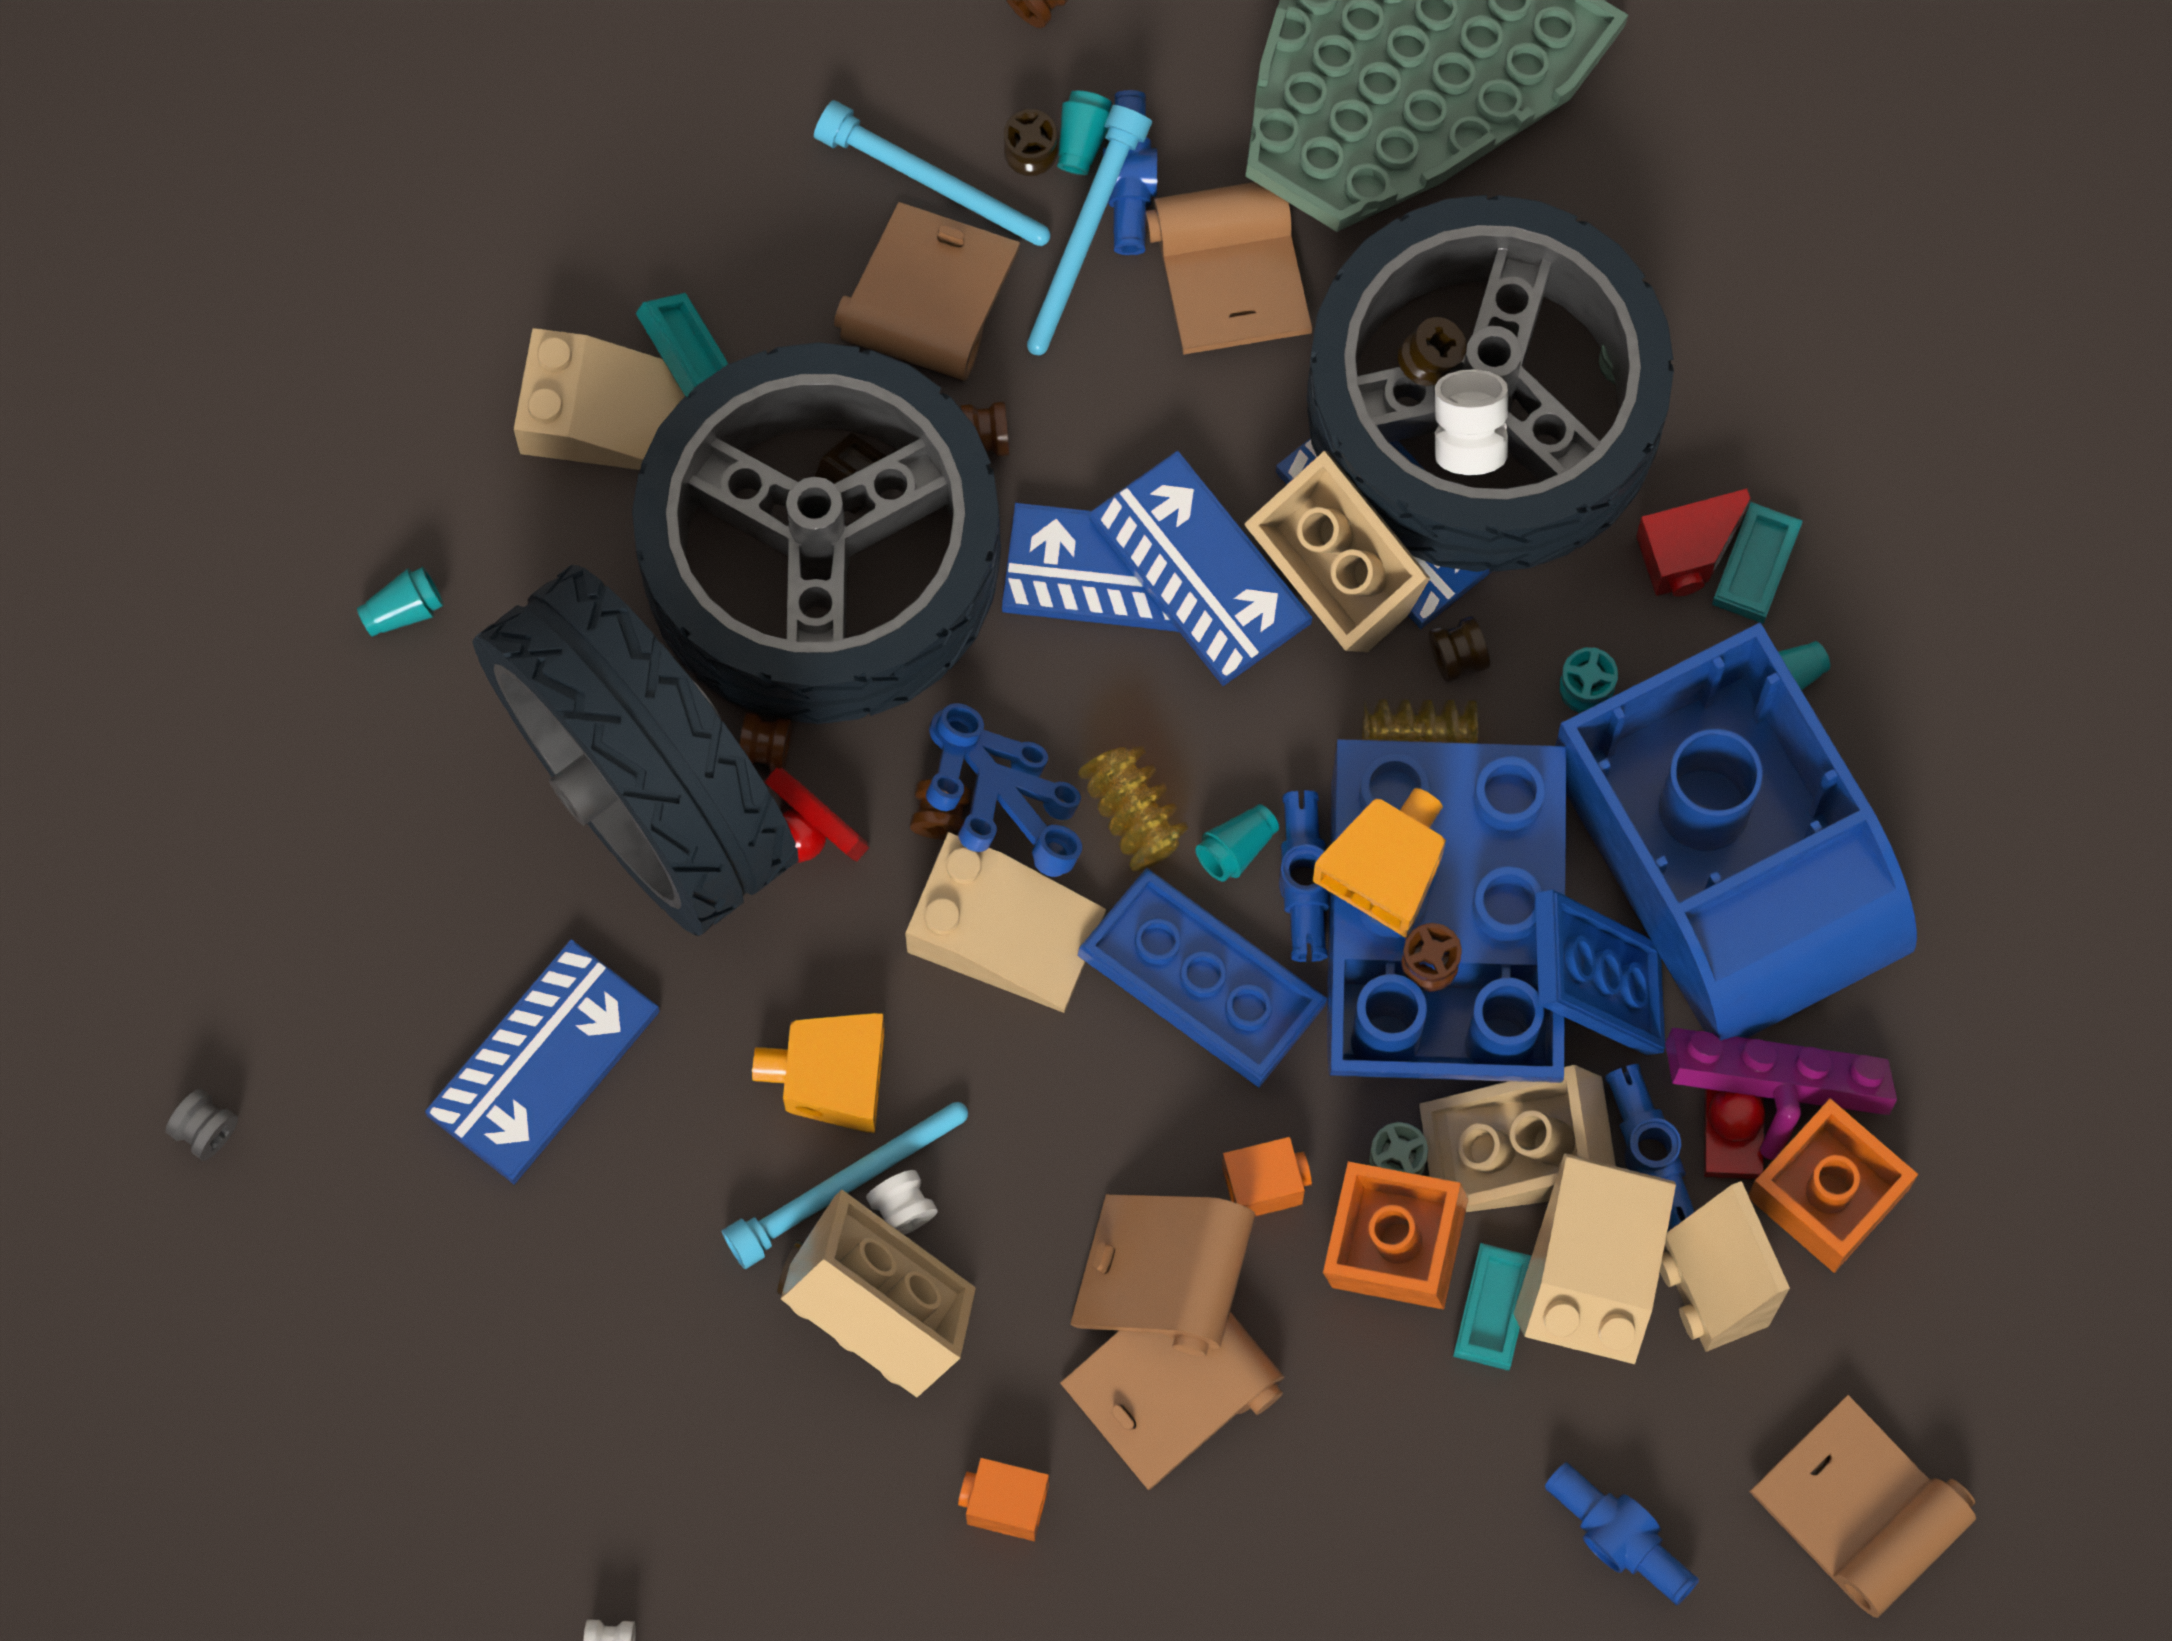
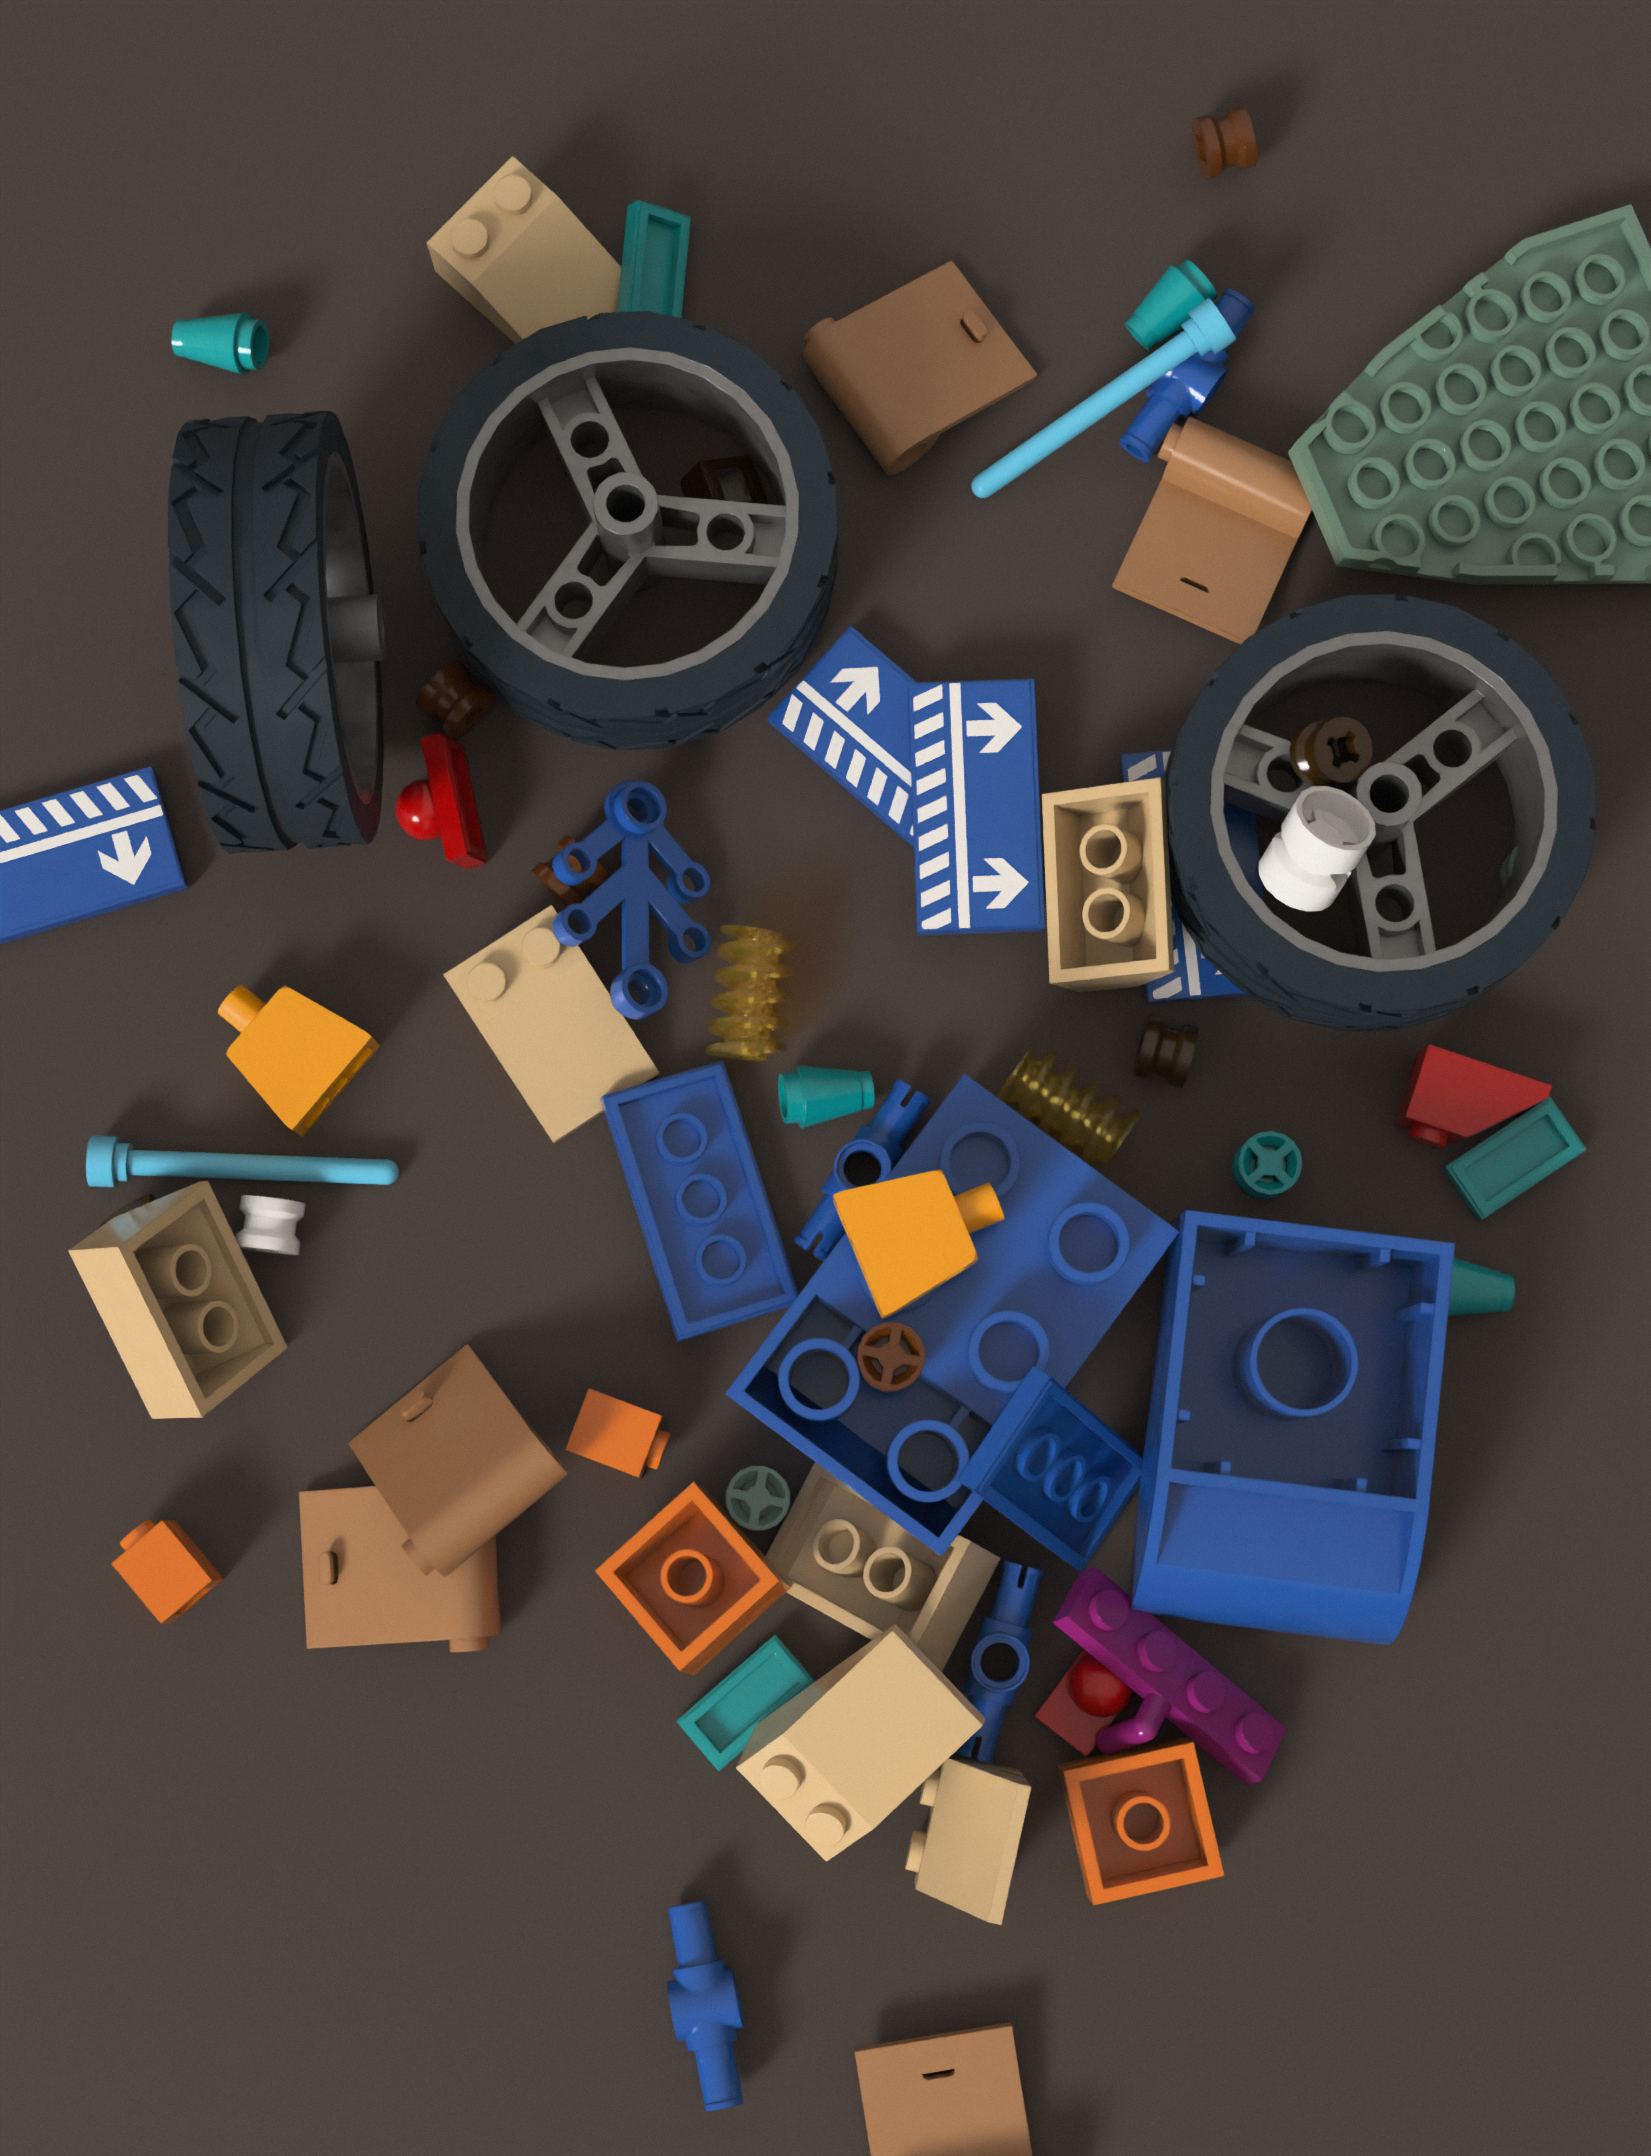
camera: 35 degrees right, 10 degrees up
(841, 128) = (946, 150): medium azure piece -> none
(991, 426) = (871, 535): reddish brown wheel -> none
(1027, 129) = (1114, 268): dark brown wheel -> none

